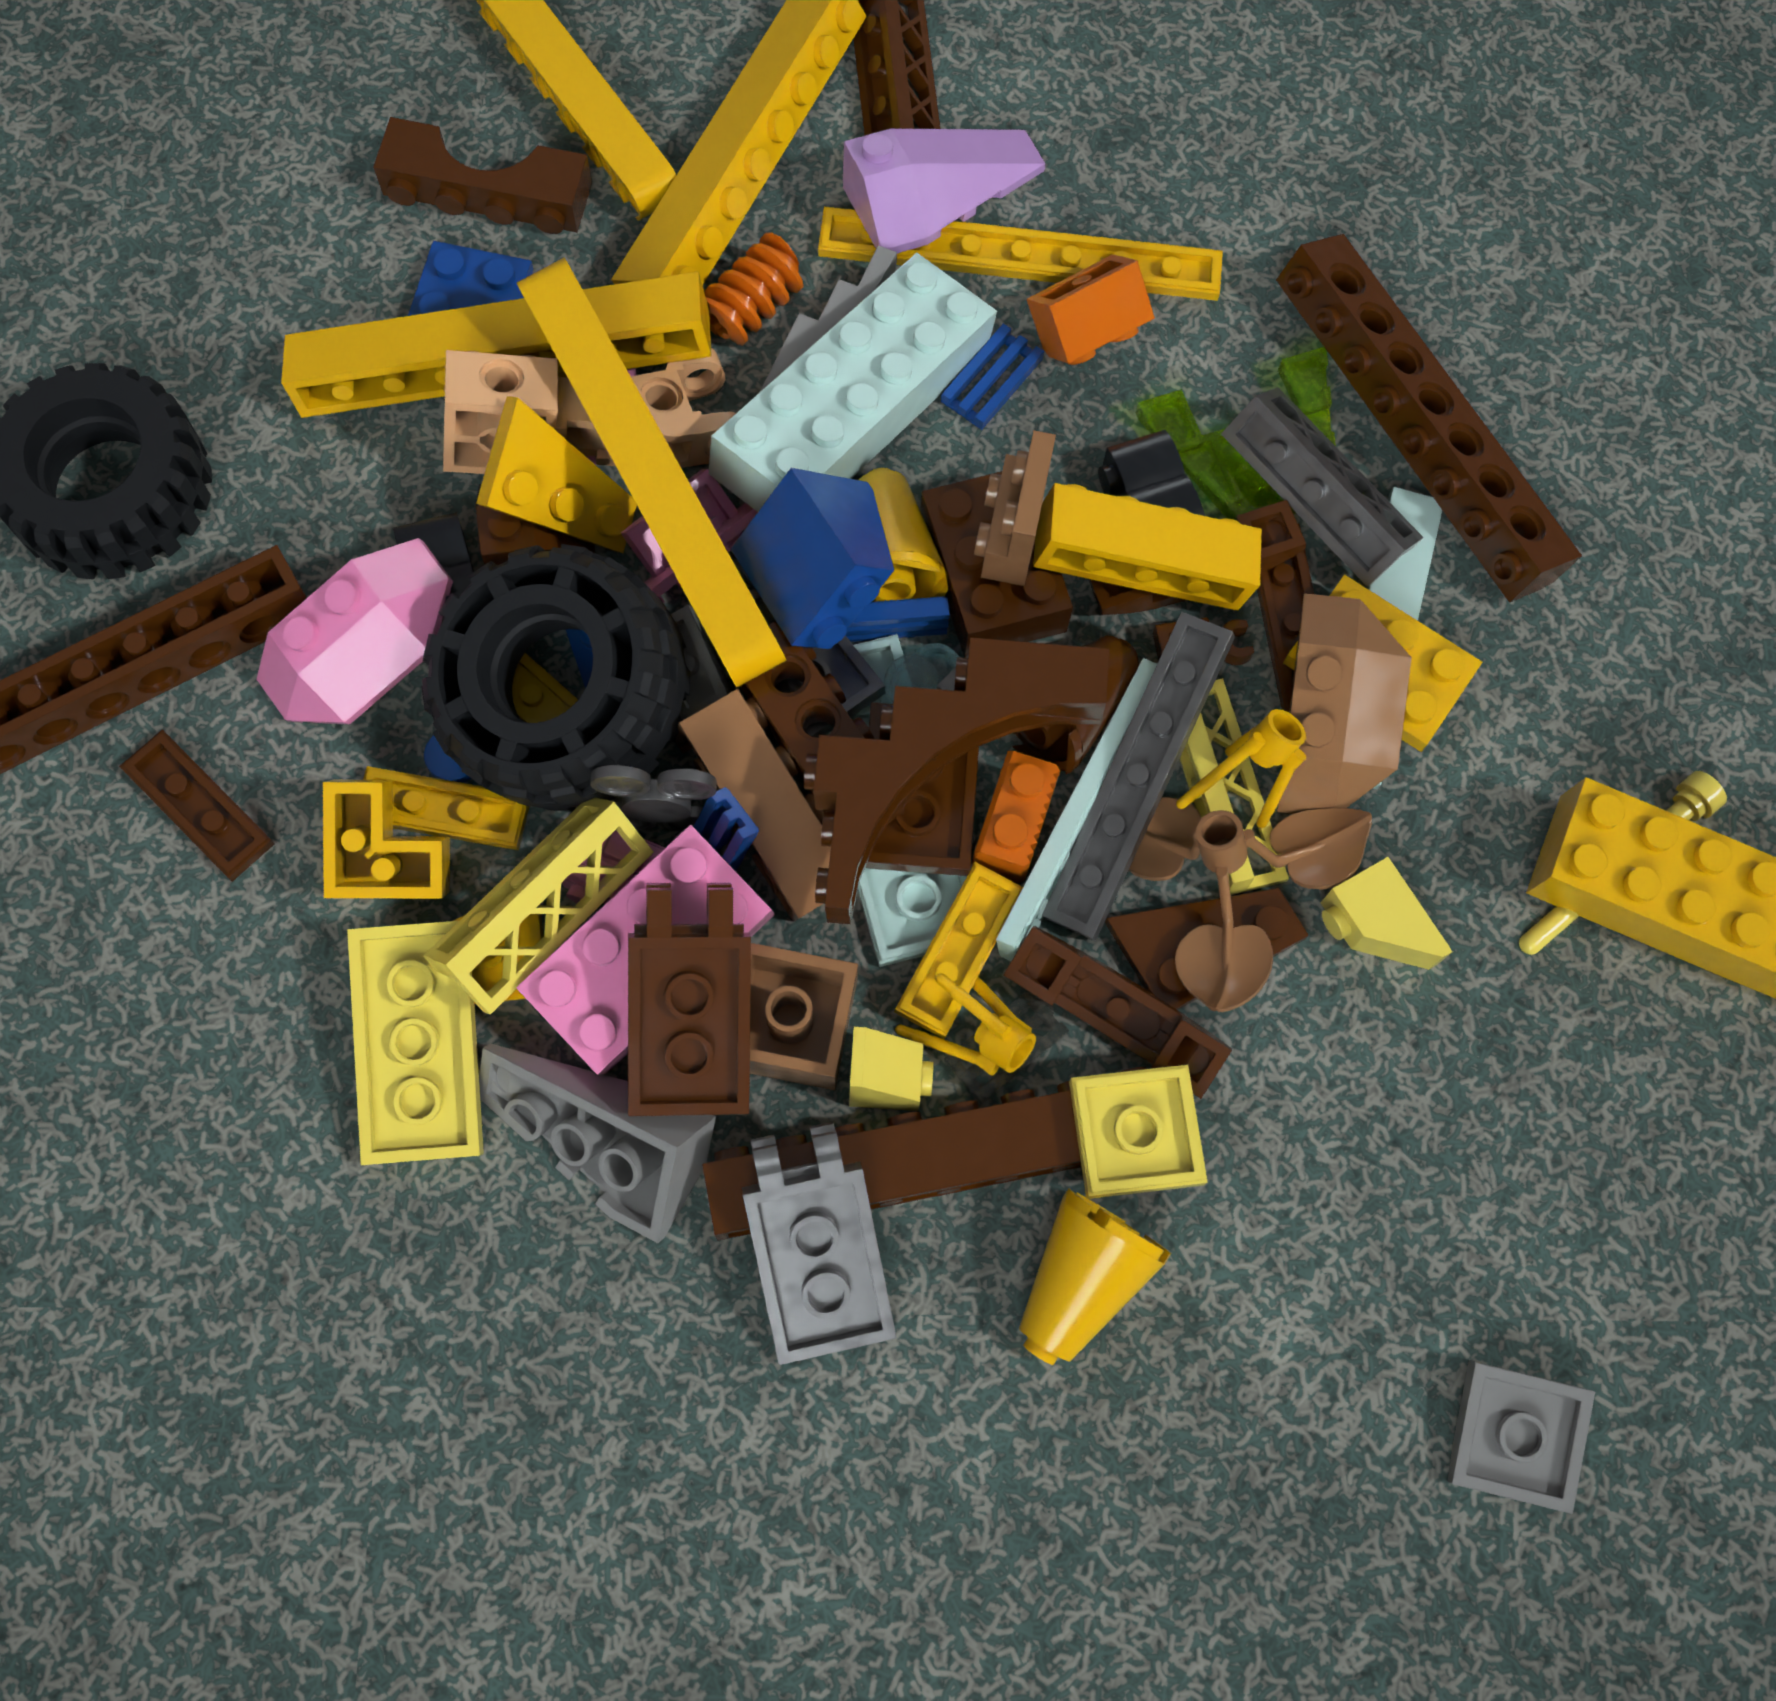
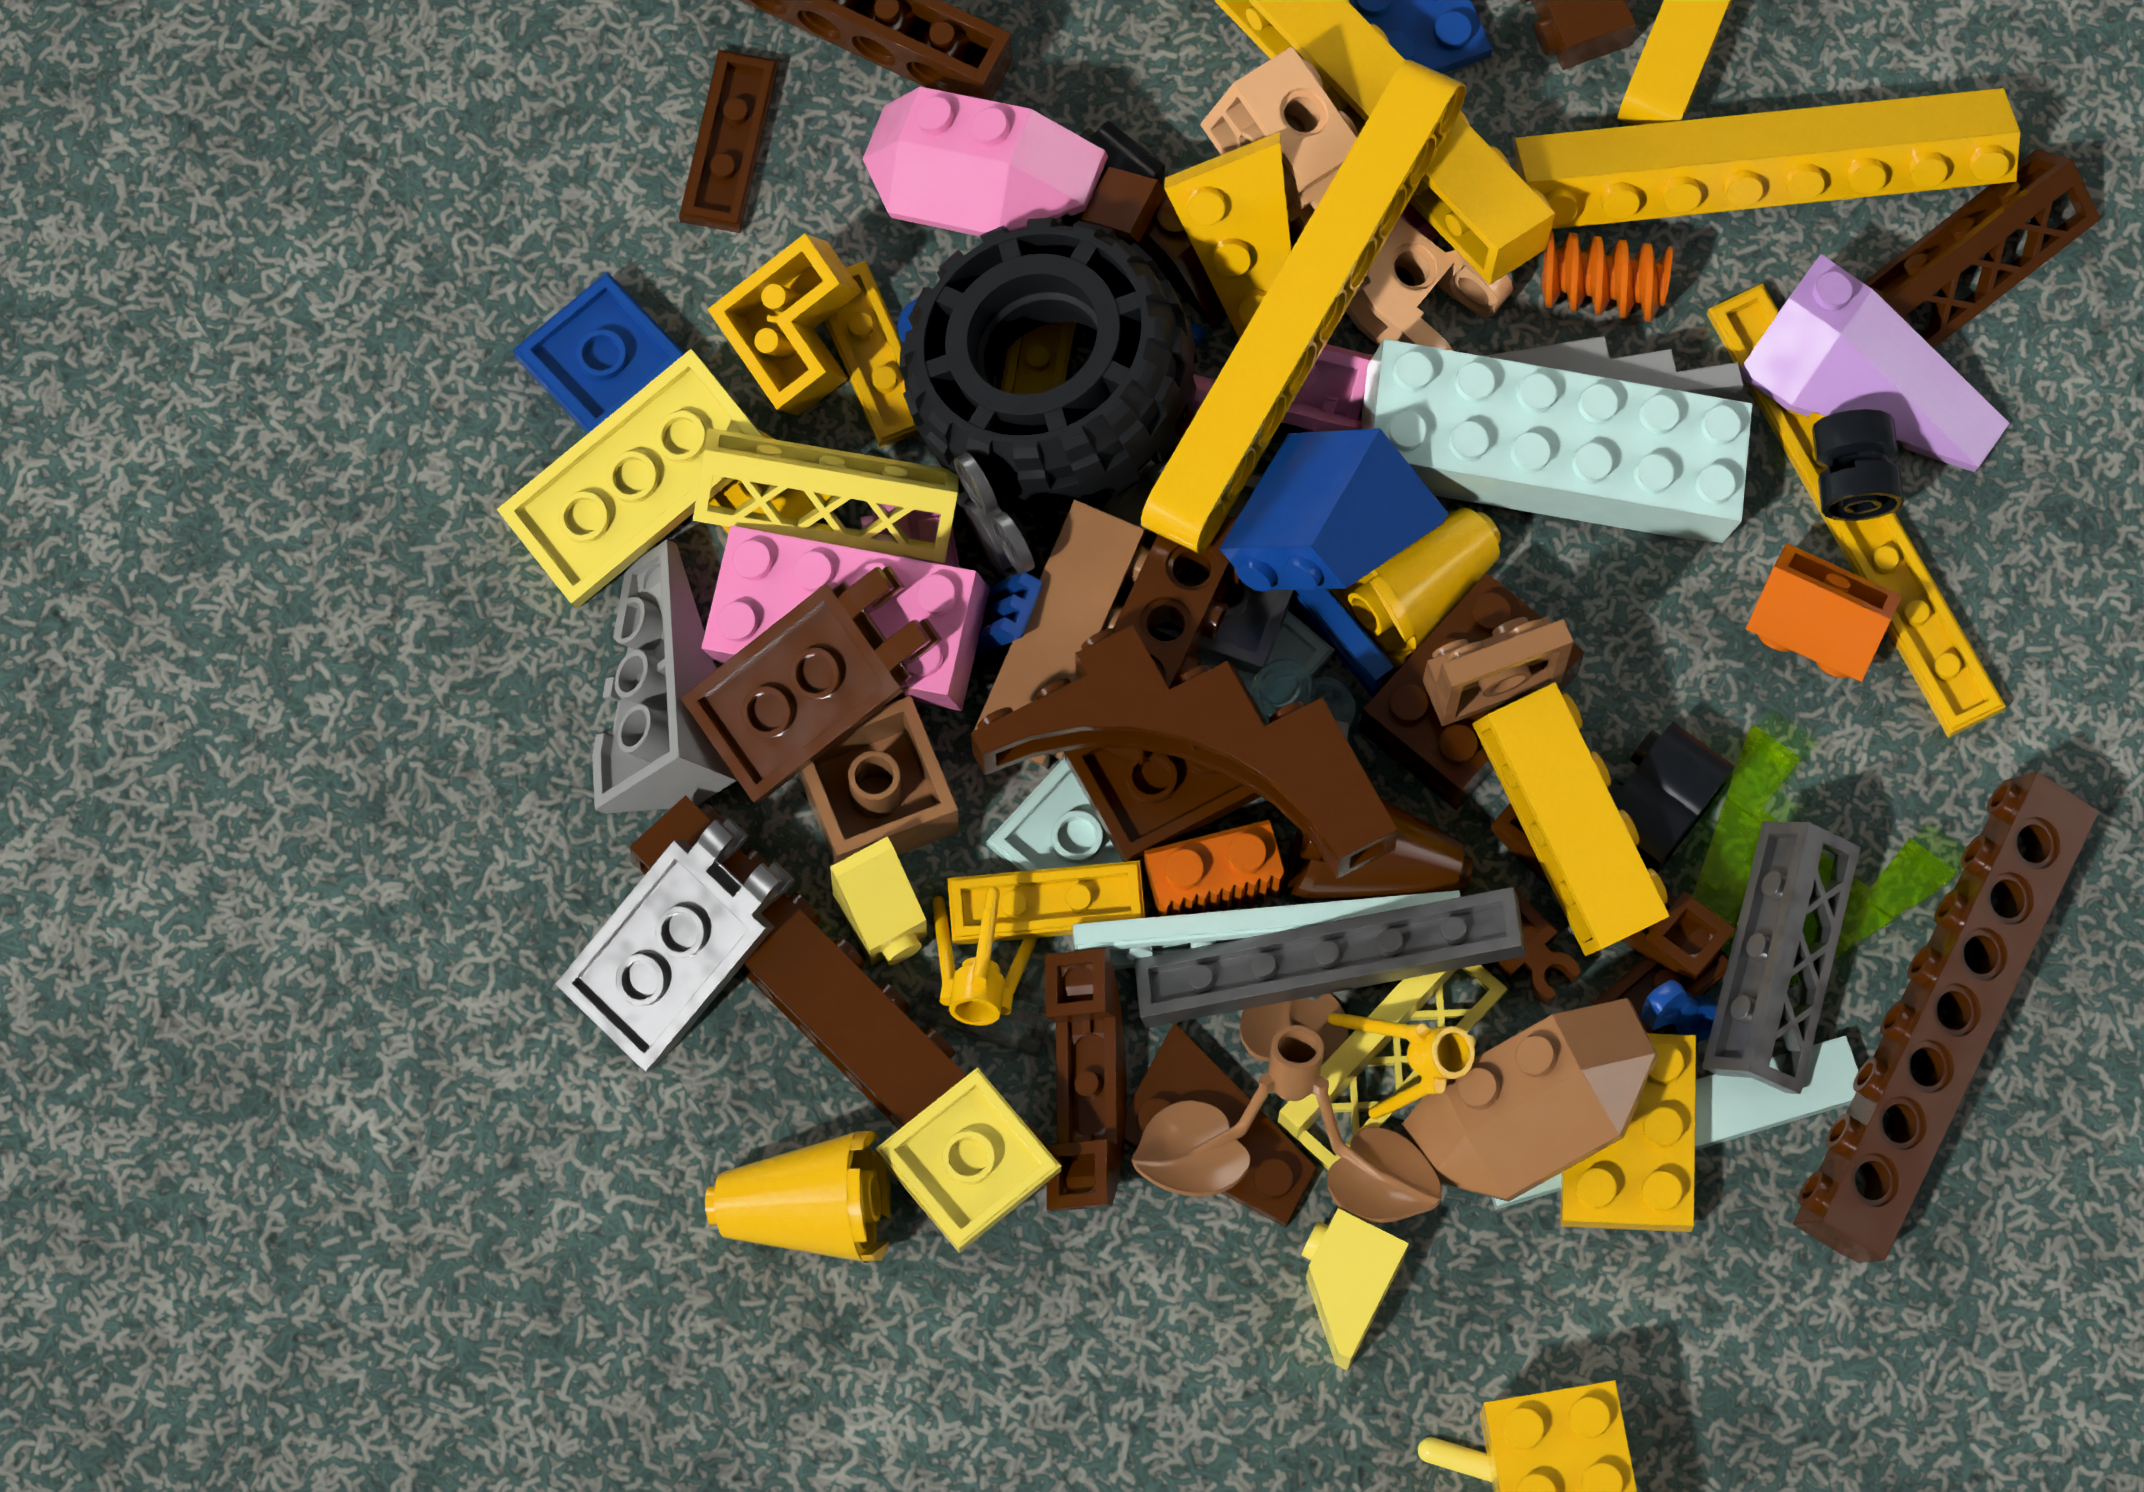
camera: 60 degrees right, 0 degrees up
(293, 1007) = (597, 352): none -> blue plate
(467, 549) = (1124, 203): none -> reddish brown tile
(989, 211) = (1858, 472): none -> black wheel
(1015, 347) = (1688, 543): blue tile -> none
(1317, 573) = (1675, 1006): none -> blue piece

